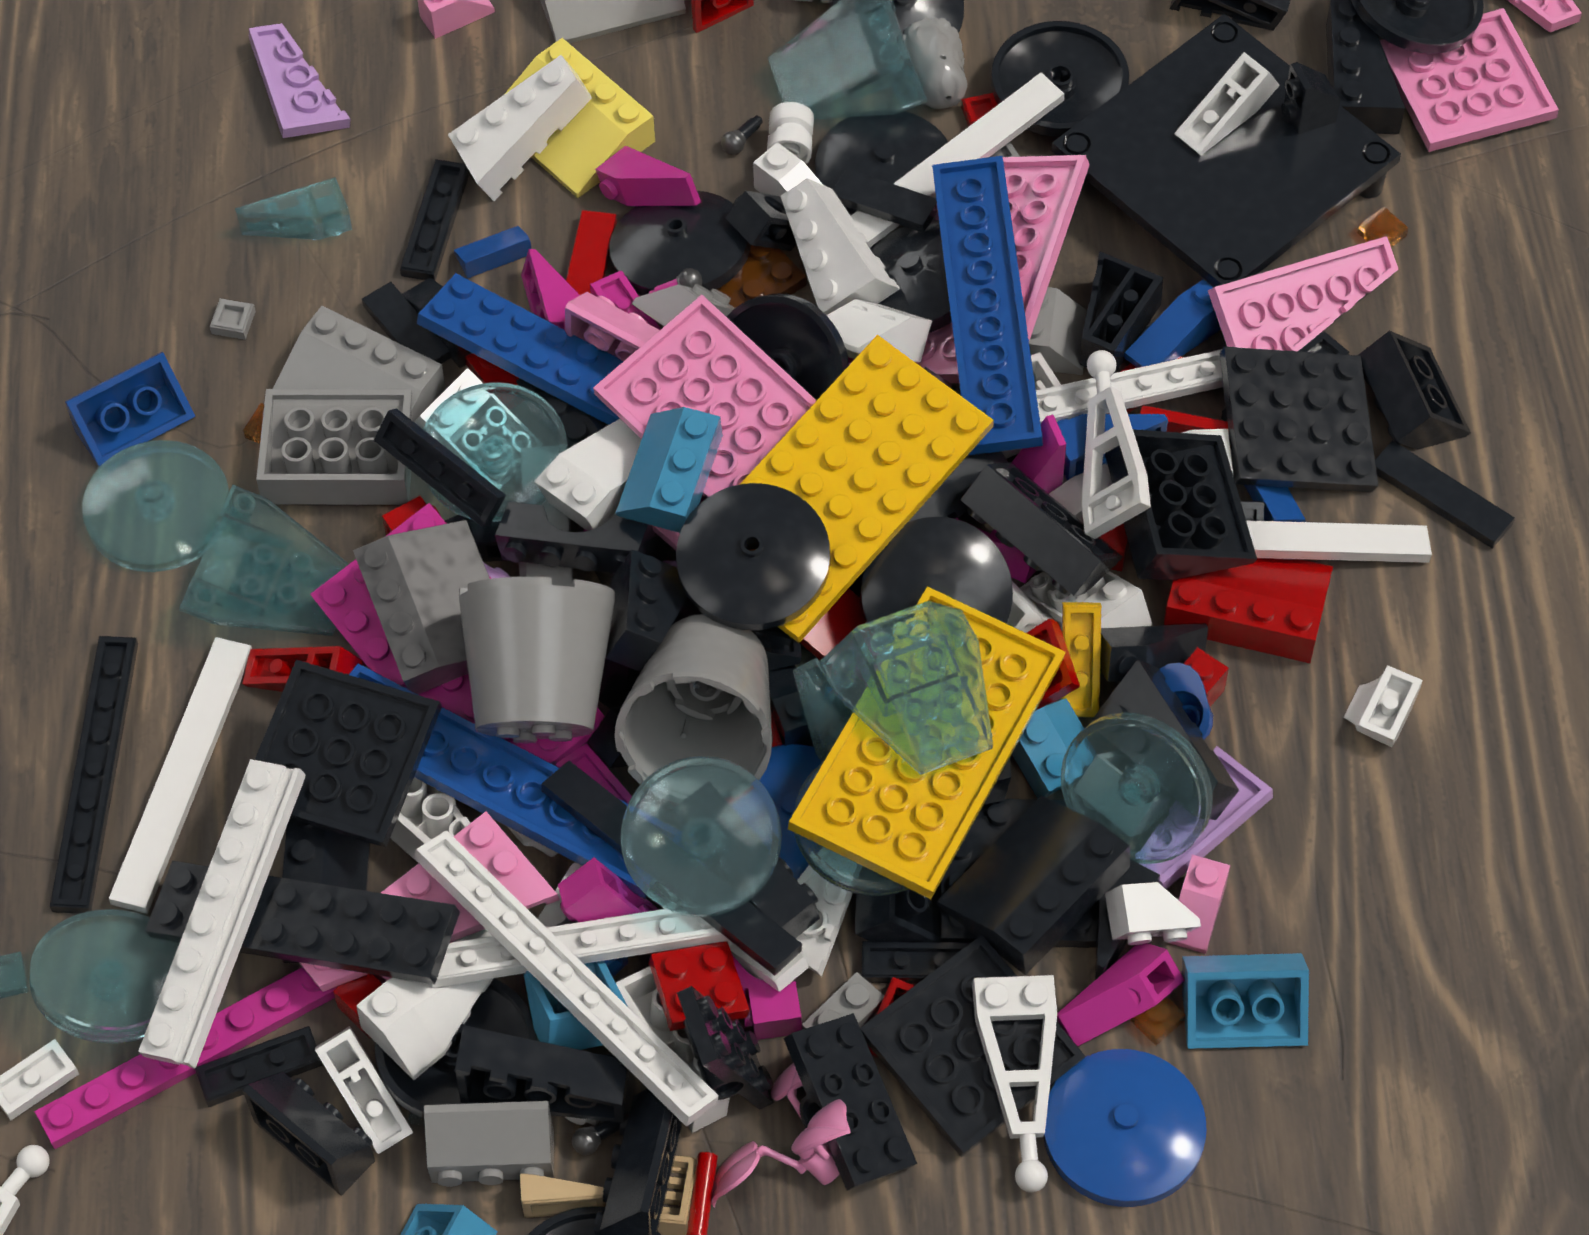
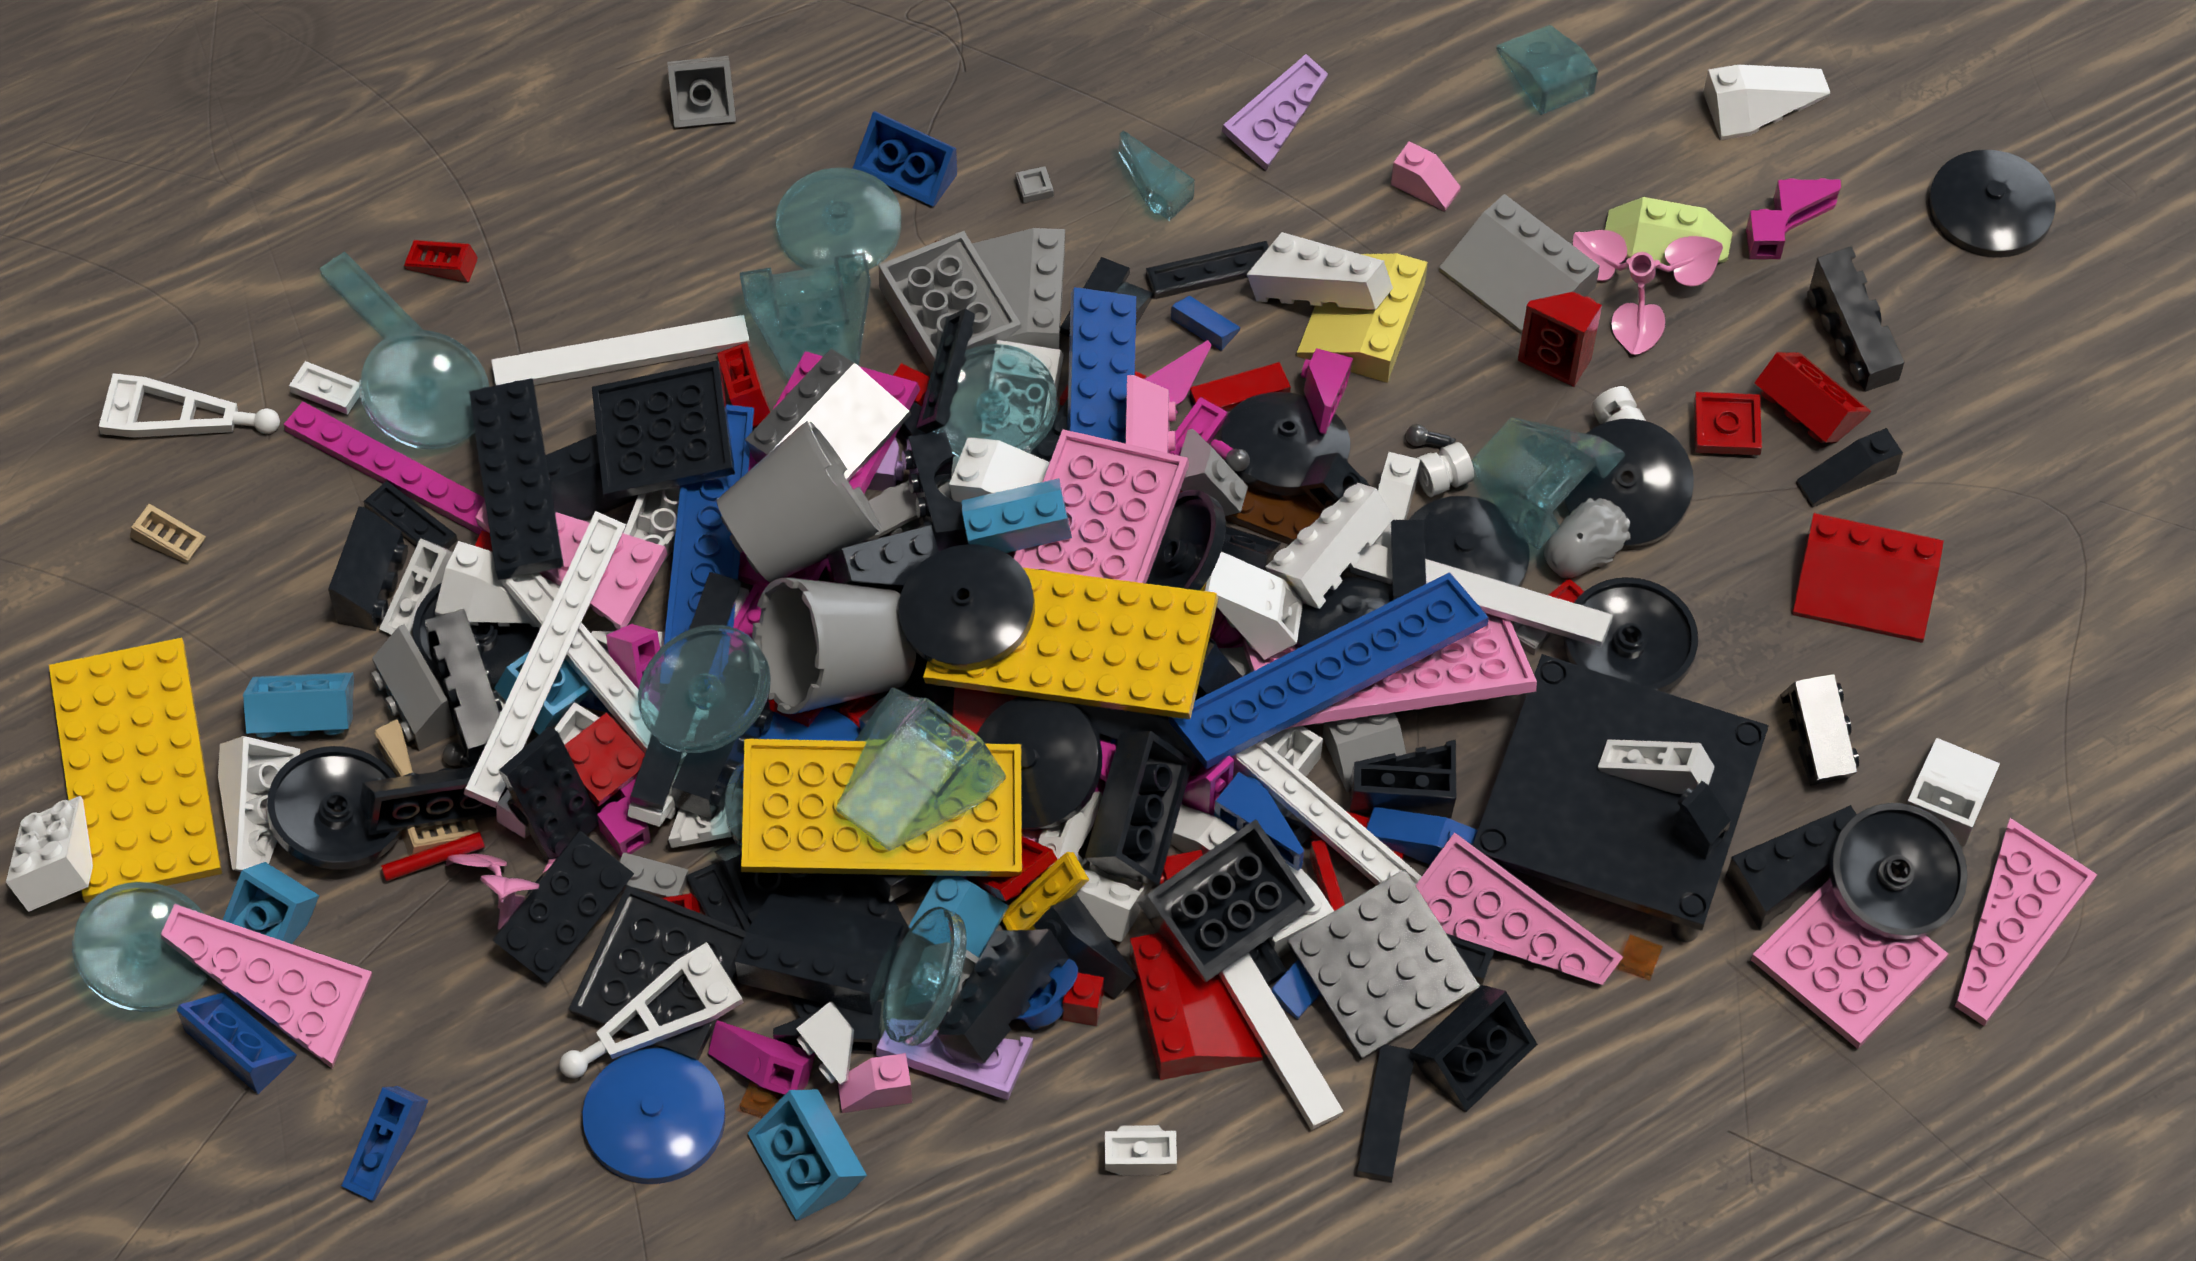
camera: 60 degrees right, 0 degrees up
(94, 775) = (591, 300): black tile -> none
(222, 914) = (495, 423): white plate -> none
(1130, 495) = (1185, 846): white plate -> none

